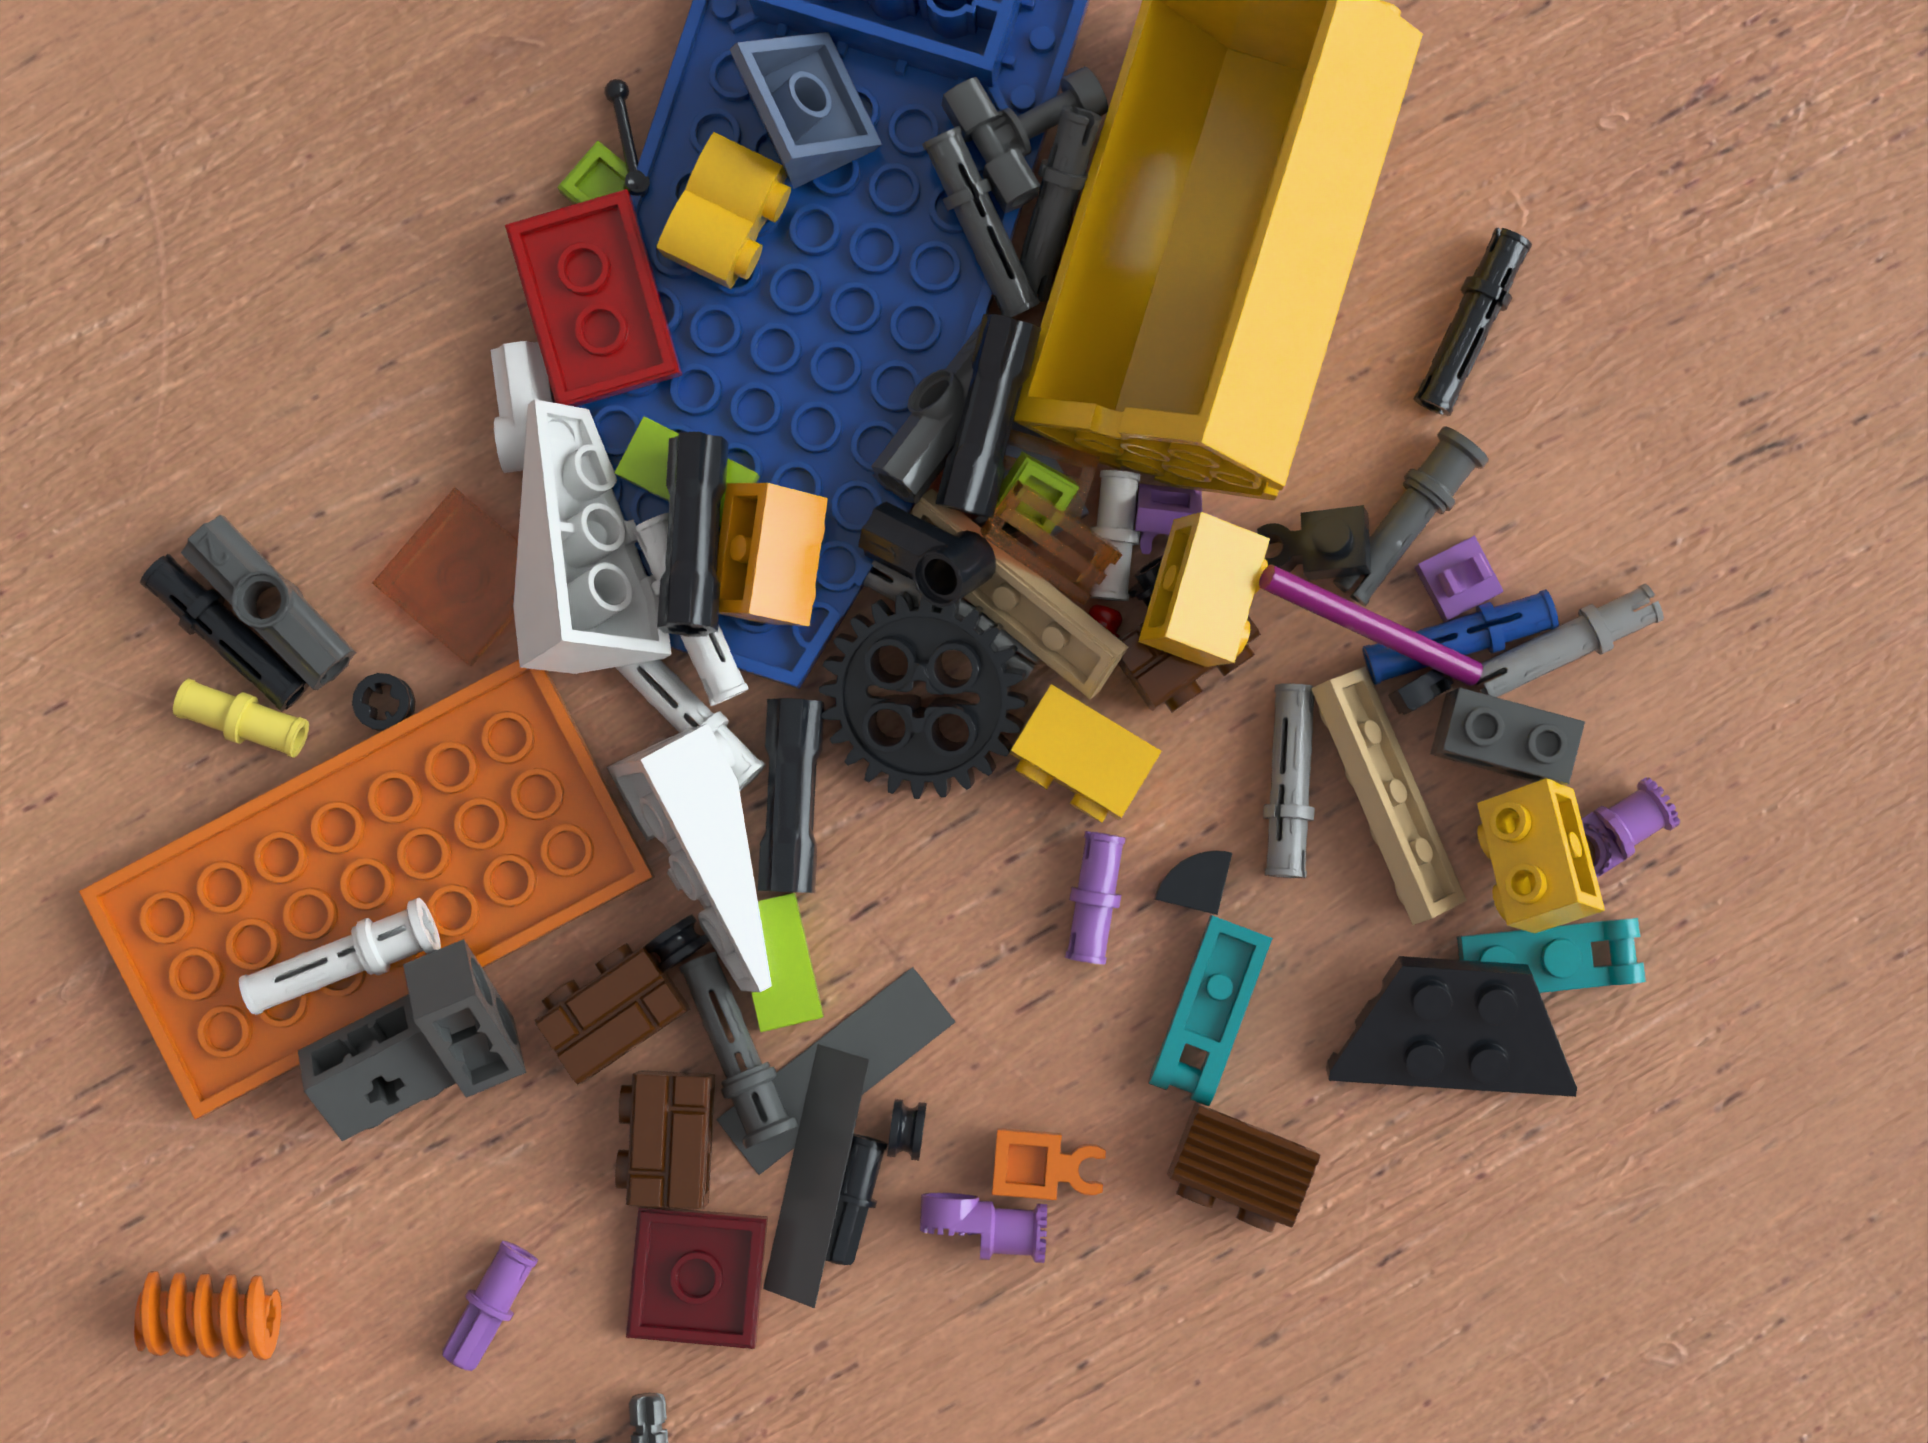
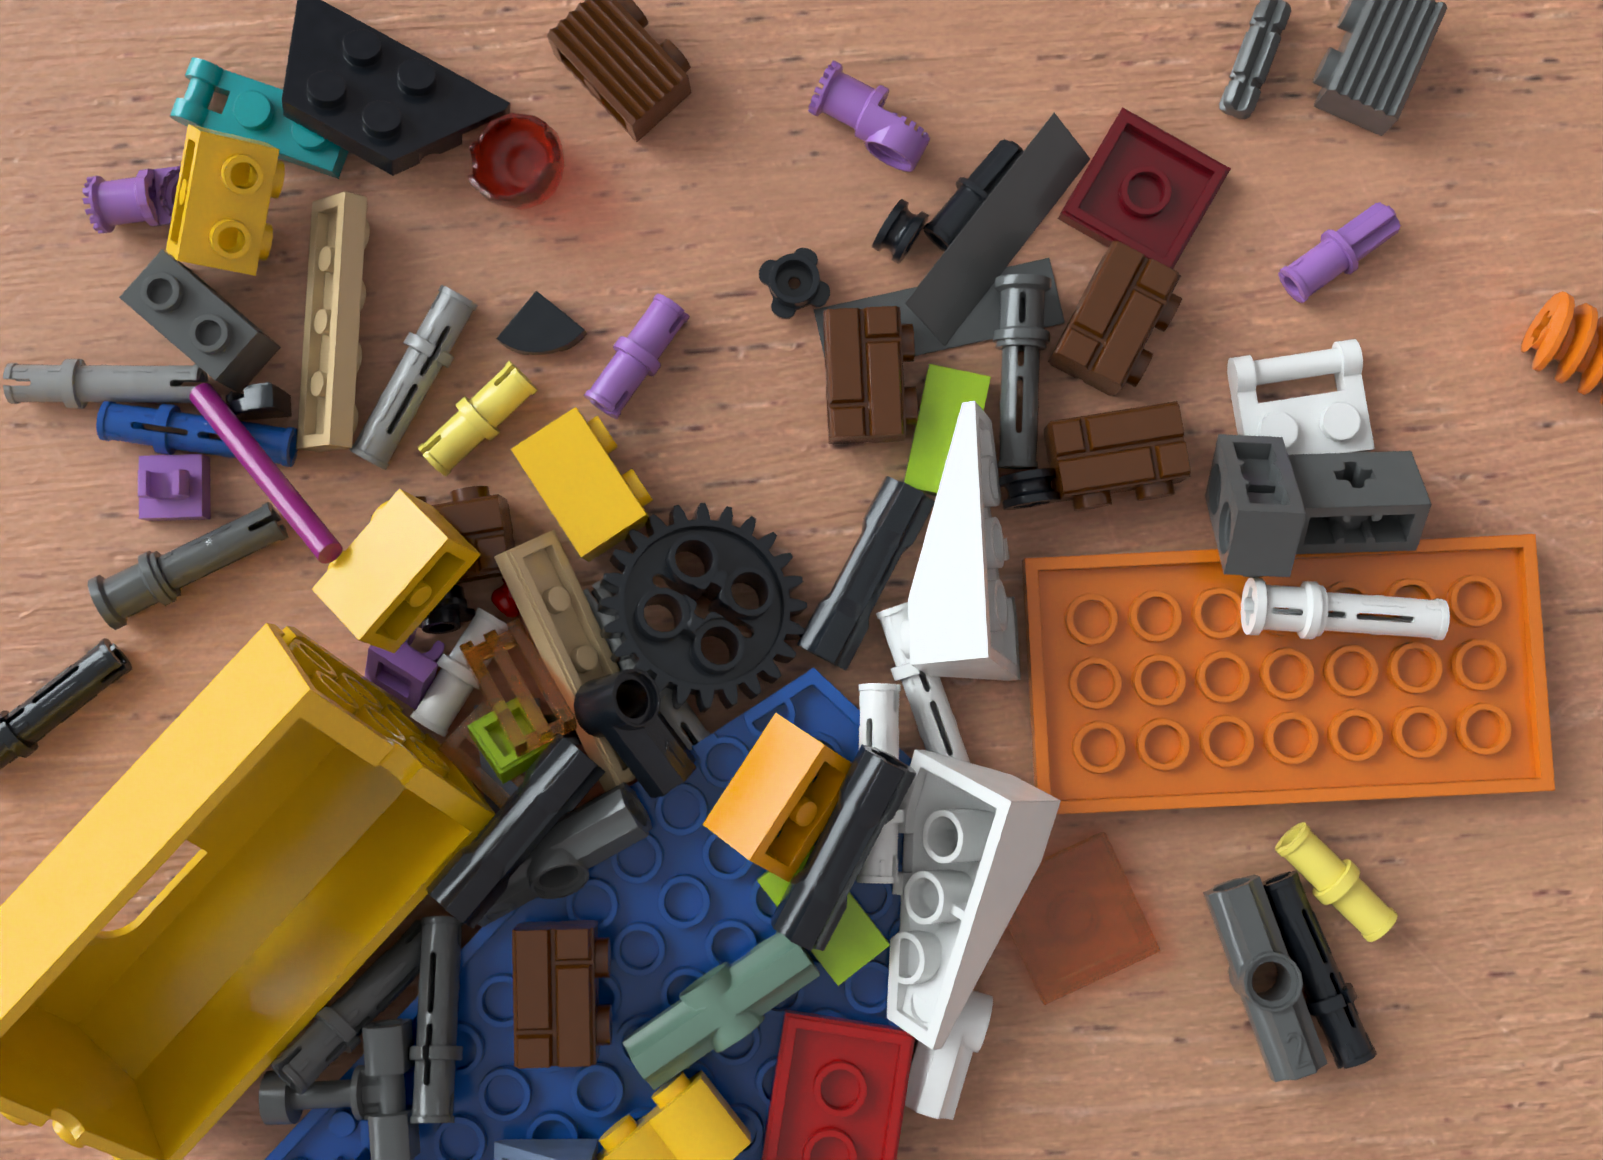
camera: 155 degrees left, 0 degrees up
(367, 714) = (1217, 832): black bush -> none
(447, 1126) = (1307, 423): none -> white plate
(738, 347) = (719, 1009): none -> sand green piece
(873, 976) = (867, 376): none -> reddish brown brick
(885, 295) = (558, 993): none -> reddish brown brick
(983, 1054) = (800, 266): none -> black plate
(1032, 1165) = (802, 150): orange plate -> none
(1211, 1008) = (582, 212): teal plate -> none
(1212, 770) = (477, 419): none -> light yellow pin
(1292, 1025) = (517, 161): none -> clear red hair
(1328, 544) = (272, 569): black plate -> none

